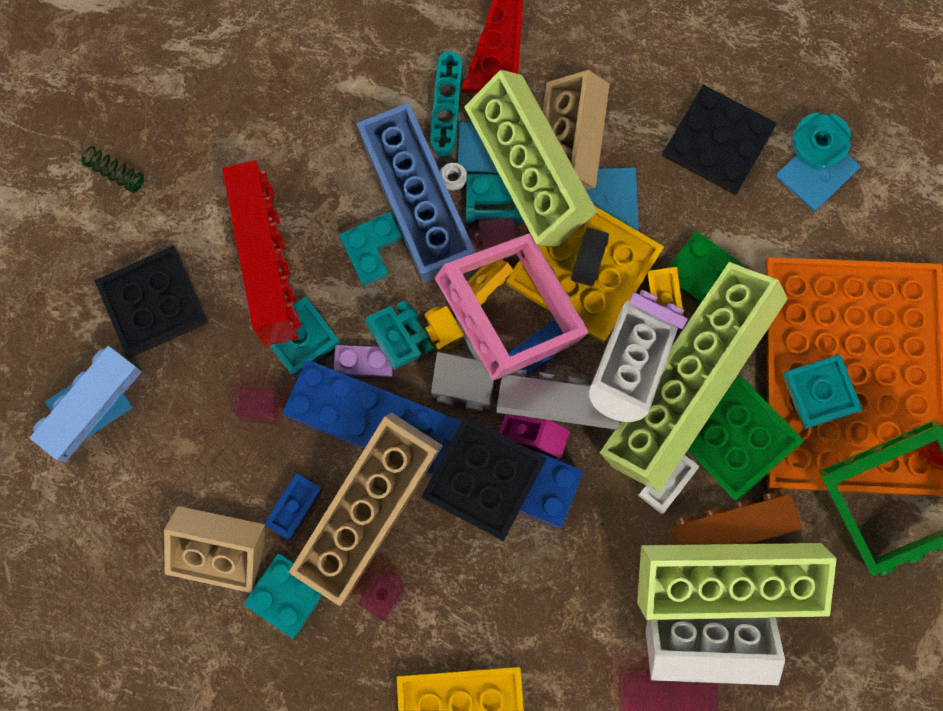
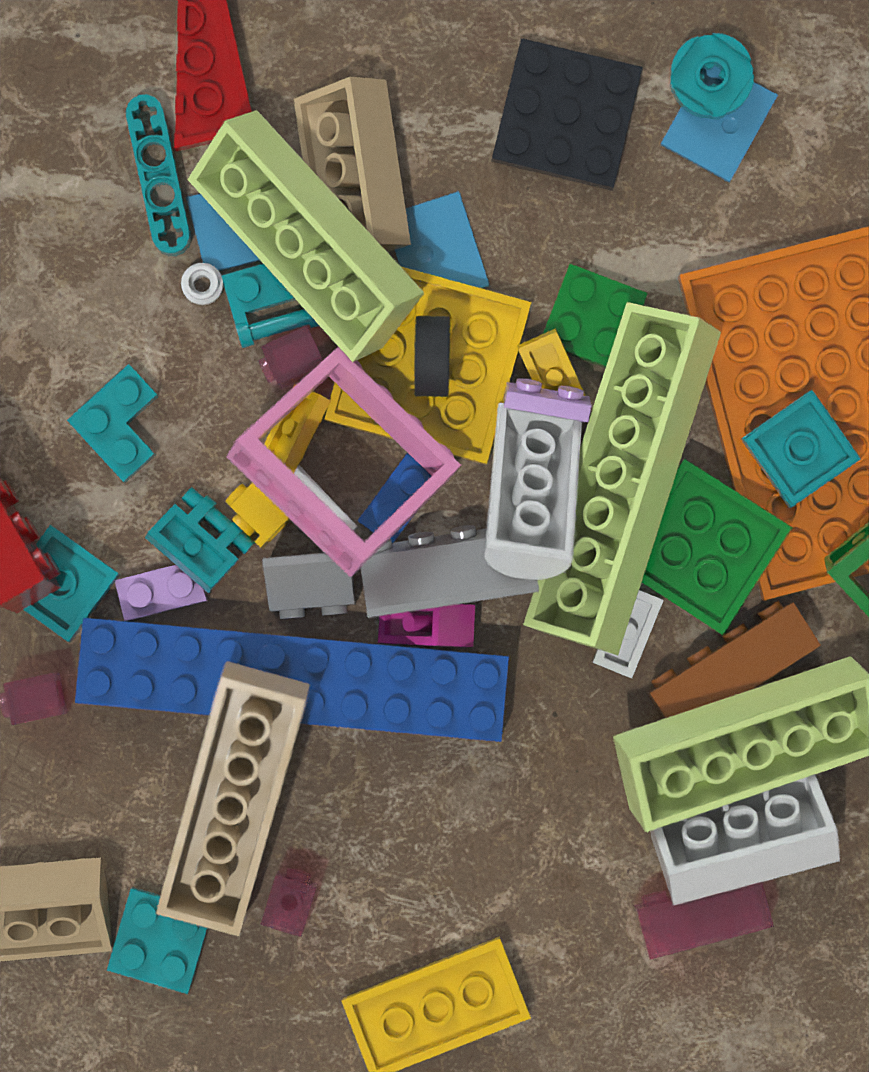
camera: 25 degrees left, 10 degrees up
(293, 507) = (130, 820): blue plate -> none
(415, 190) = (157, 328): medium blue brick -> none
(484, 478) = (378, 711): black plate -> none

